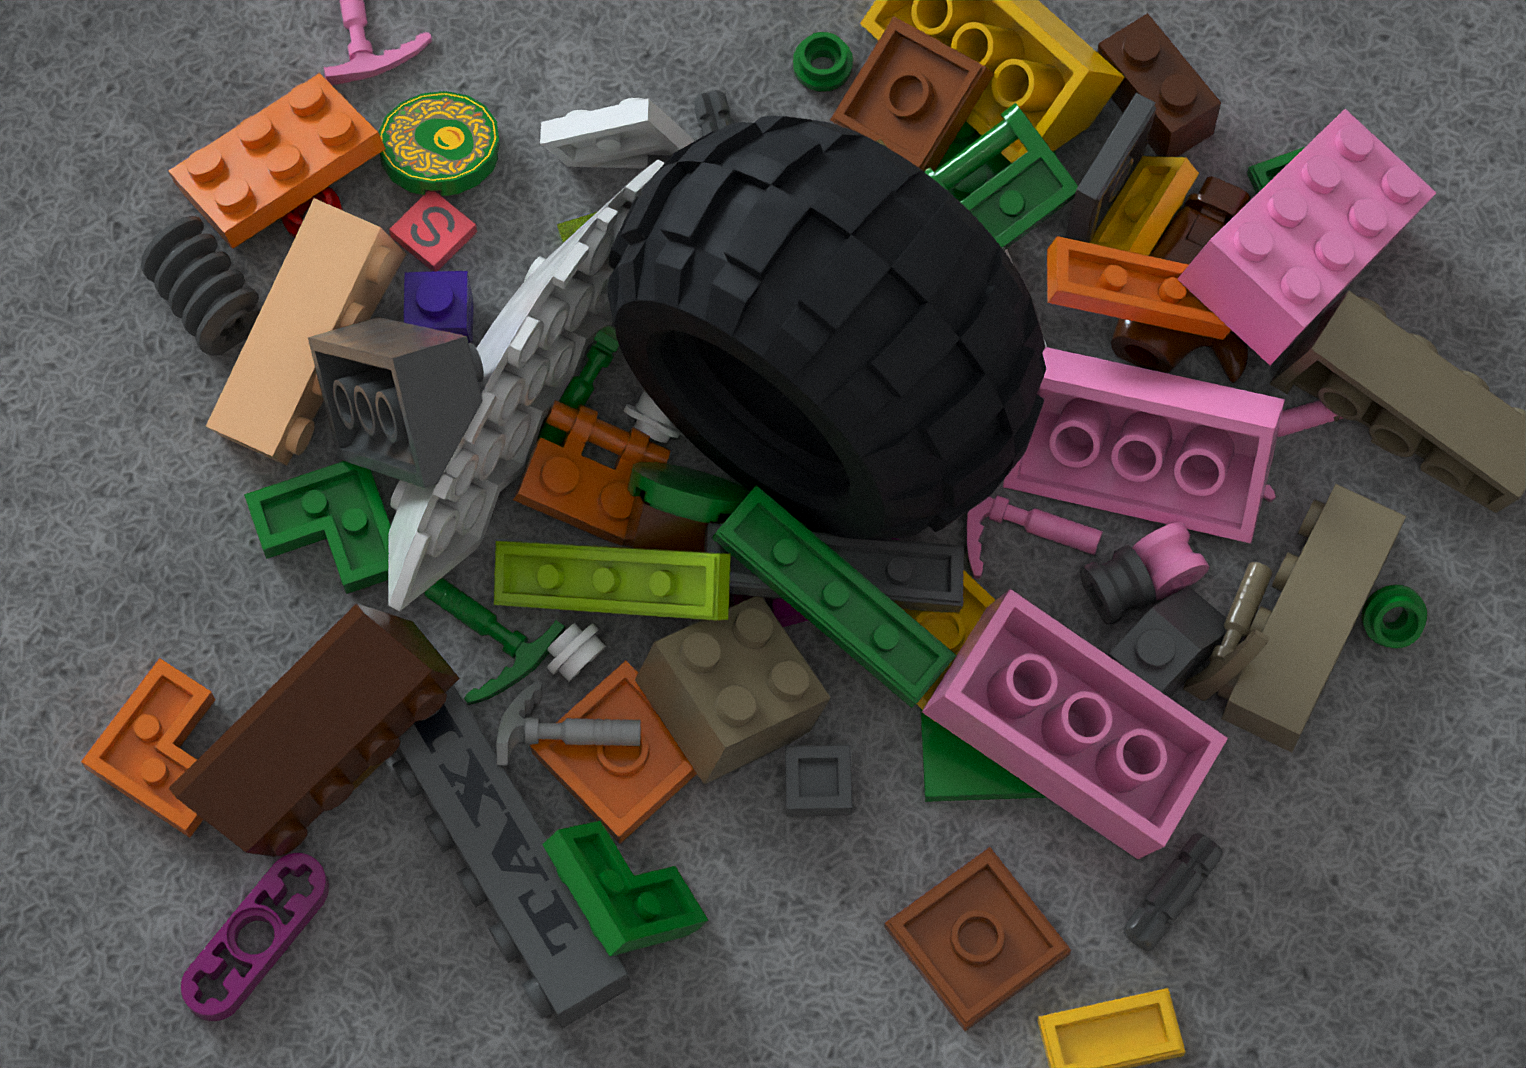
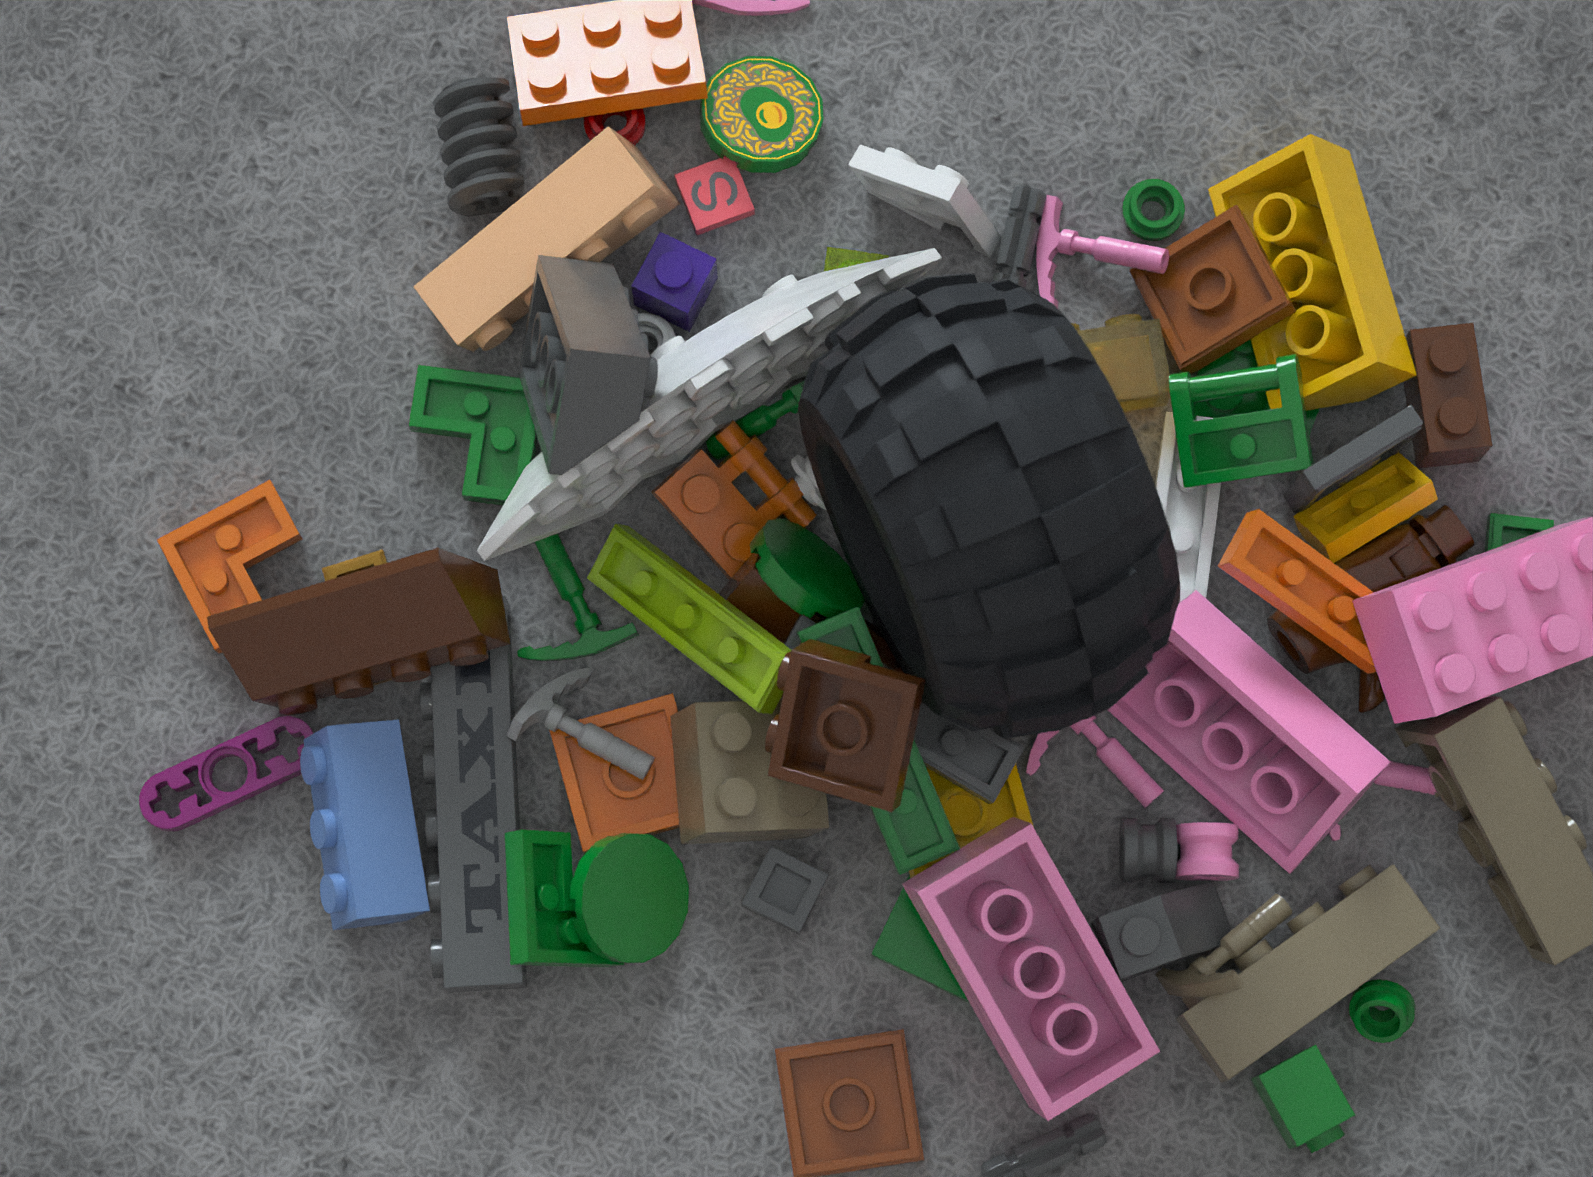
camera: 25 degrees right, 10 degrees up
(407, 912) = (364, 824): none -> medium blue brick
(574, 650) = (634, 659): white plate -> none
(683, 852) = (629, 897): none -> green tile
(801, 583) = (844, 725): none -> reddish brown plate
(808, 107) = (1103, 249): none -> bright pink piece
(1372, 724) = (1304, 1100): none -> green brick

